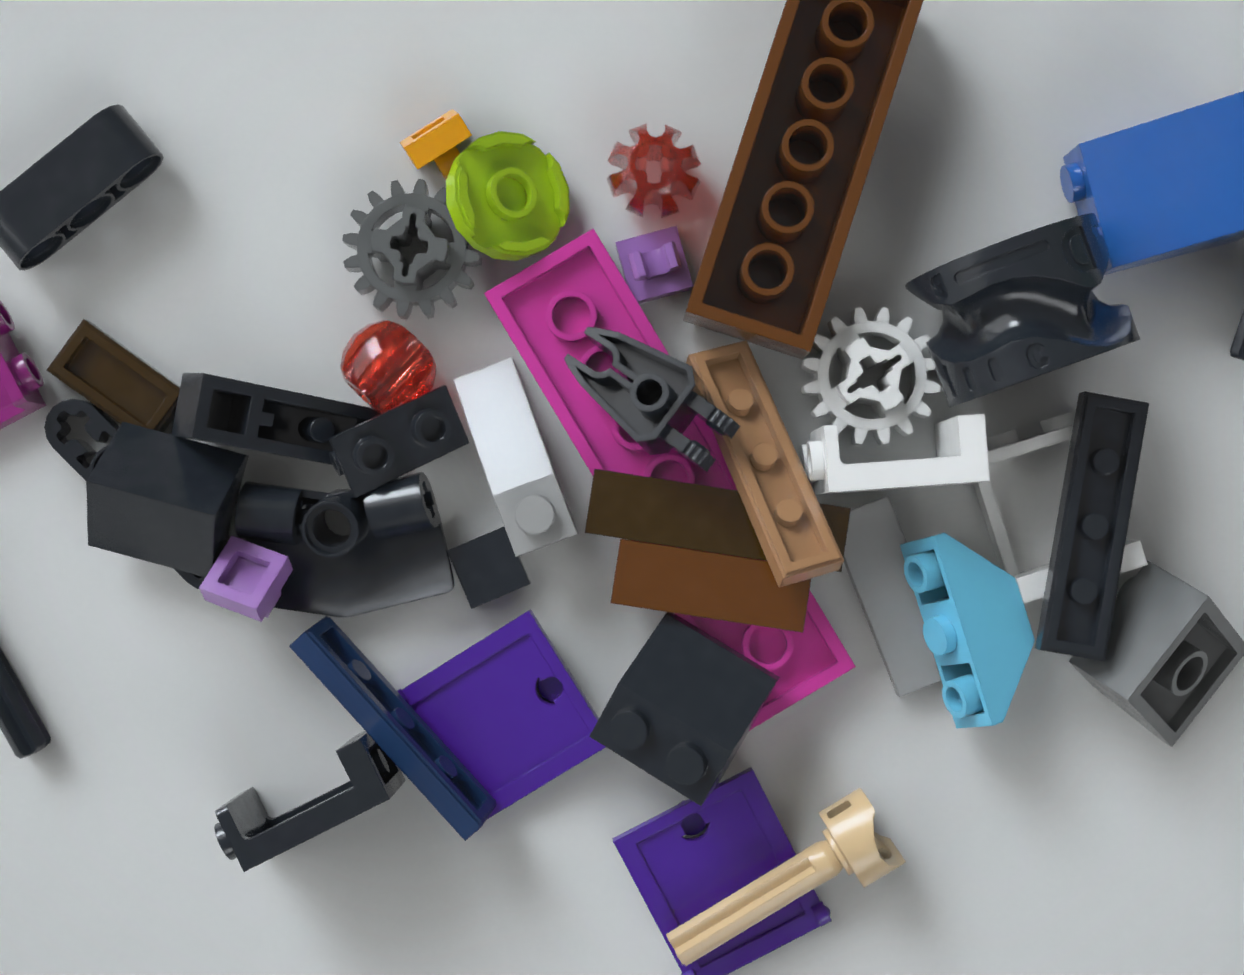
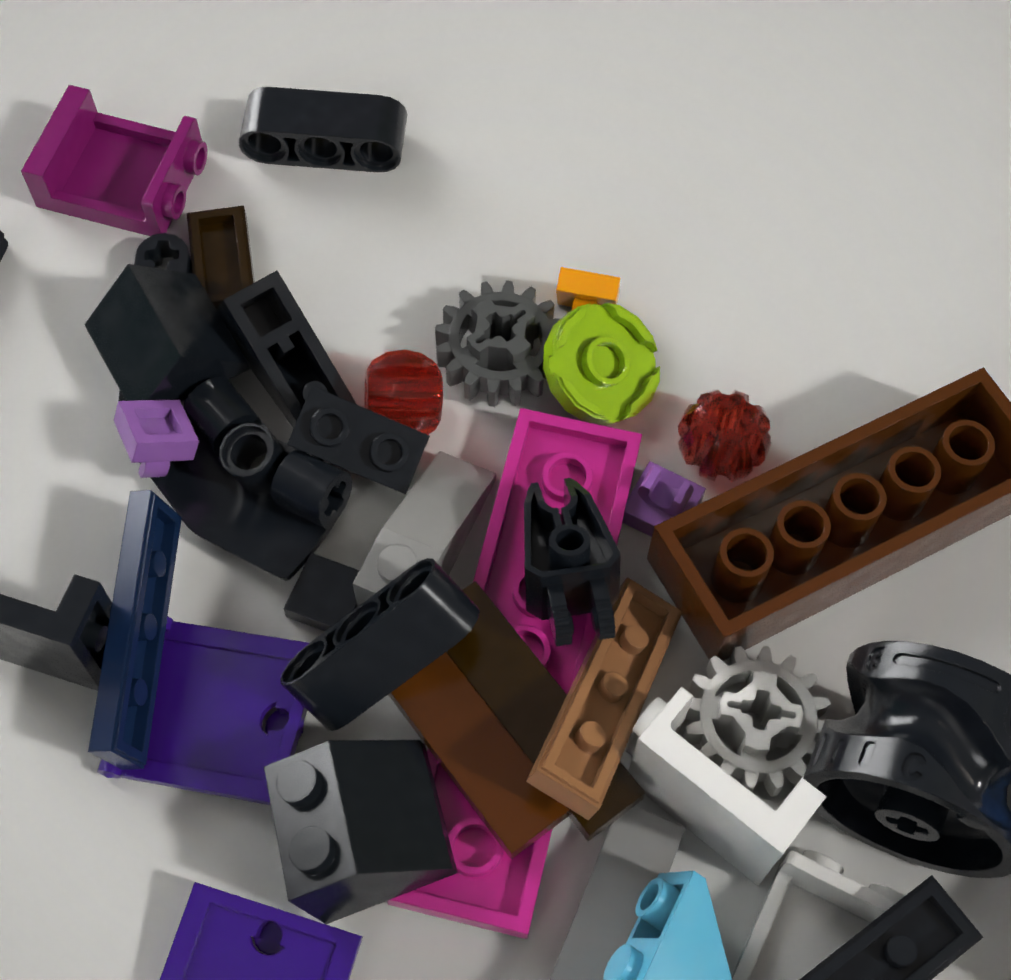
camera: 50 degrees right, 25 degrees down
(583, 583) = (380, 644): none -> black beam

